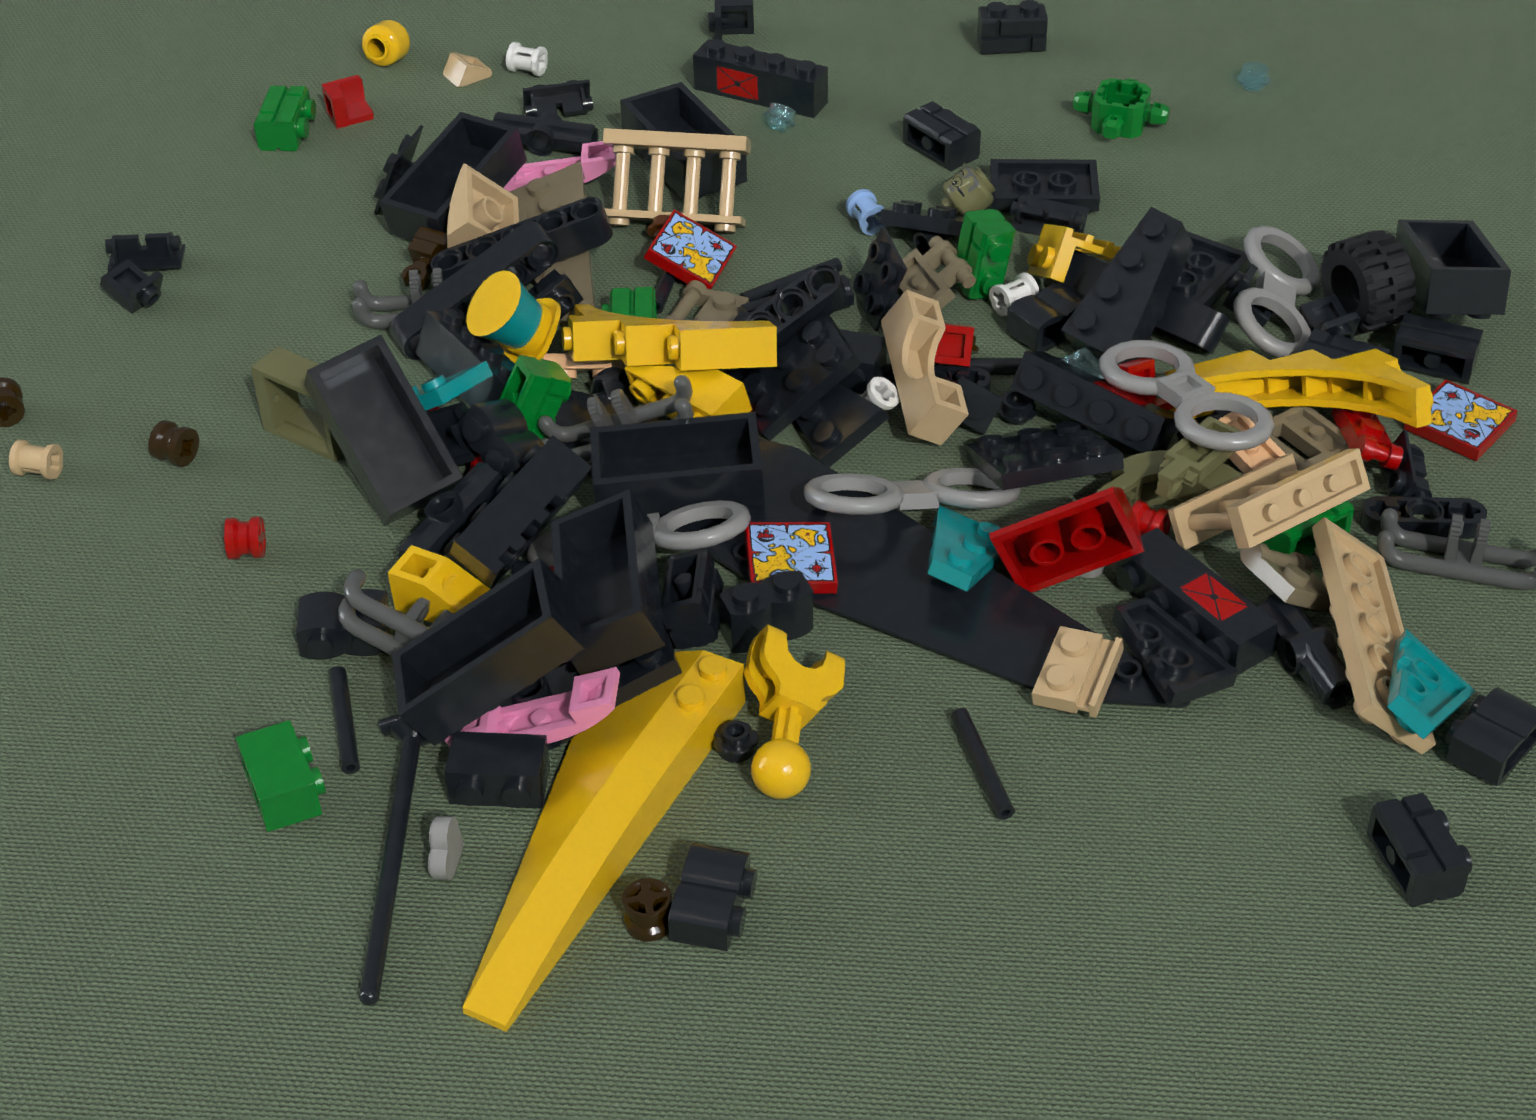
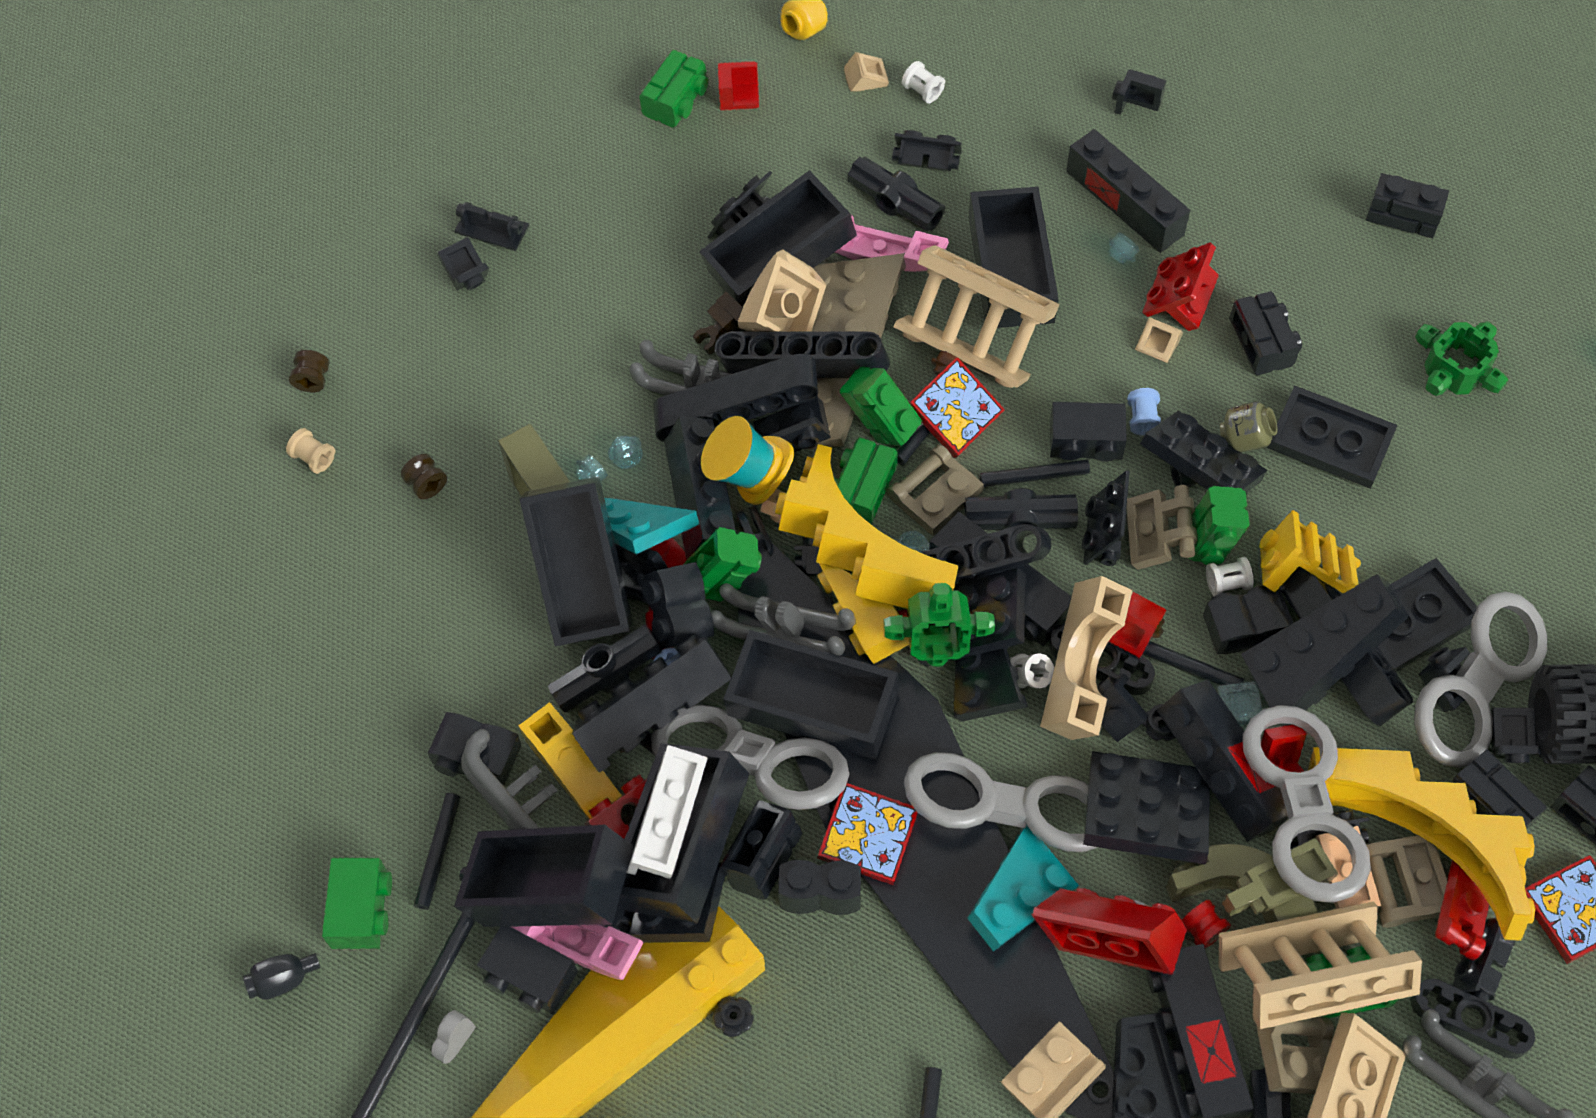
camera: 25 degrees right, 20 degrees up
(217, 869) = (278, 975): none -> black plant
(245, 537) = (436, 614): red wheel -> none
(592, 547) = (668, 812): none -> white panel
(620, 256) = (880, 406): none -> green brick
(751, 356) = (942, 608): none -> green piece
(789, 698) = (791, 1004): yellow piece -> none
(823, 235) = (1087, 431): none -> black brick
(849, 166) = (1159, 340): none -> tan slope
(850, 122) = (1183, 286): none -> red bracket
(1033, 212) = (1314, 485): black hinge -> none

